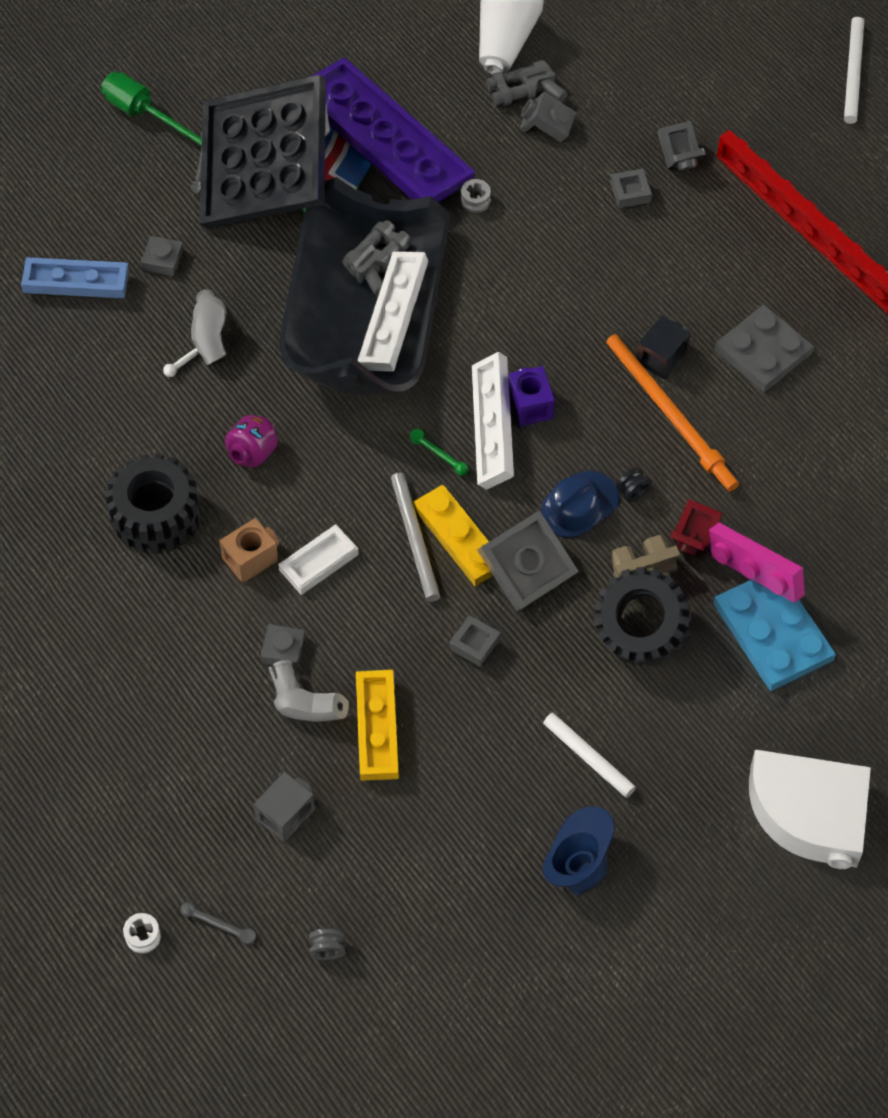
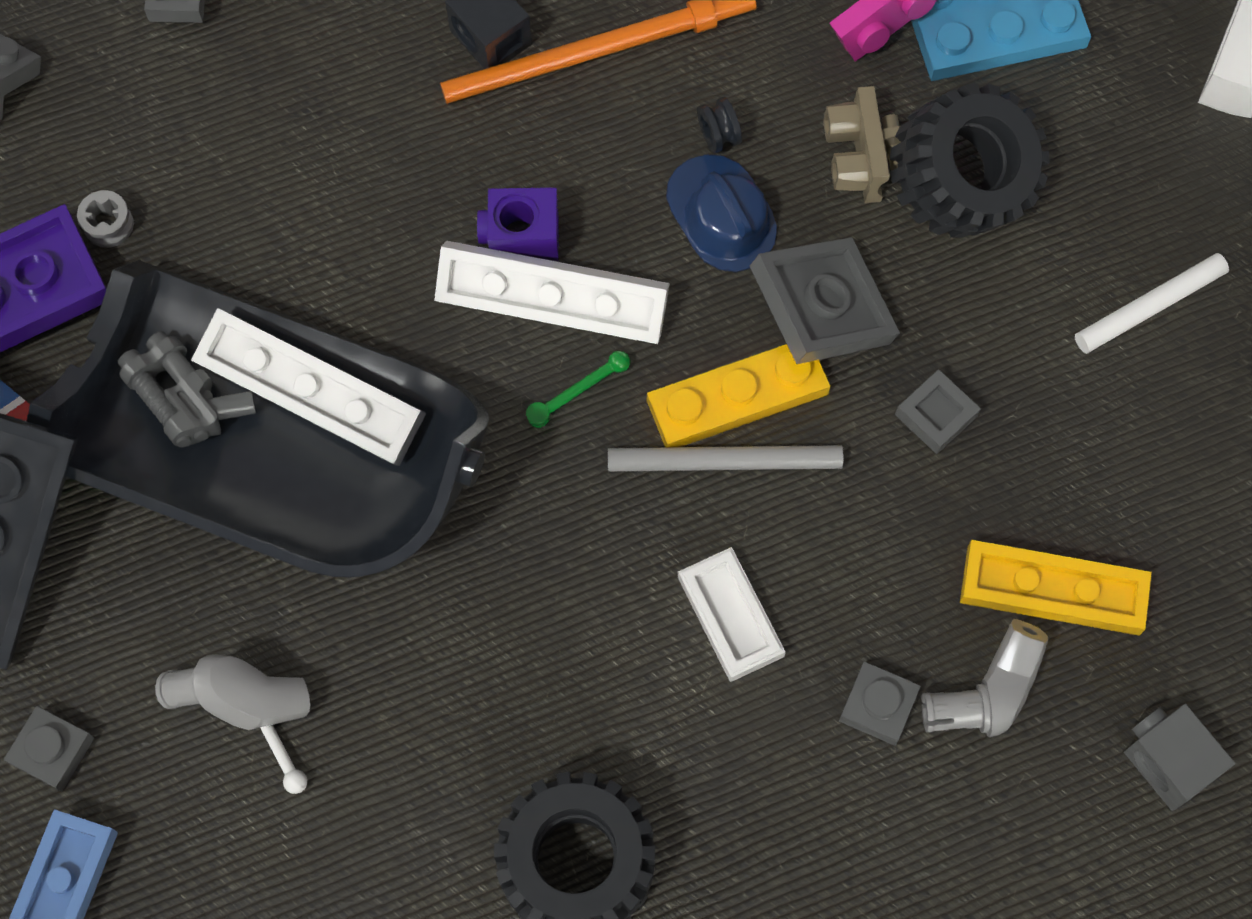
camera: 75 degrees left, 10 degrees up
(249, 563) = (704, 741): medium nougat brick -> none
(251, 441) = (489, 670): magenta head -> none
(694, 526) = (818, 63): dark red bracket -> none

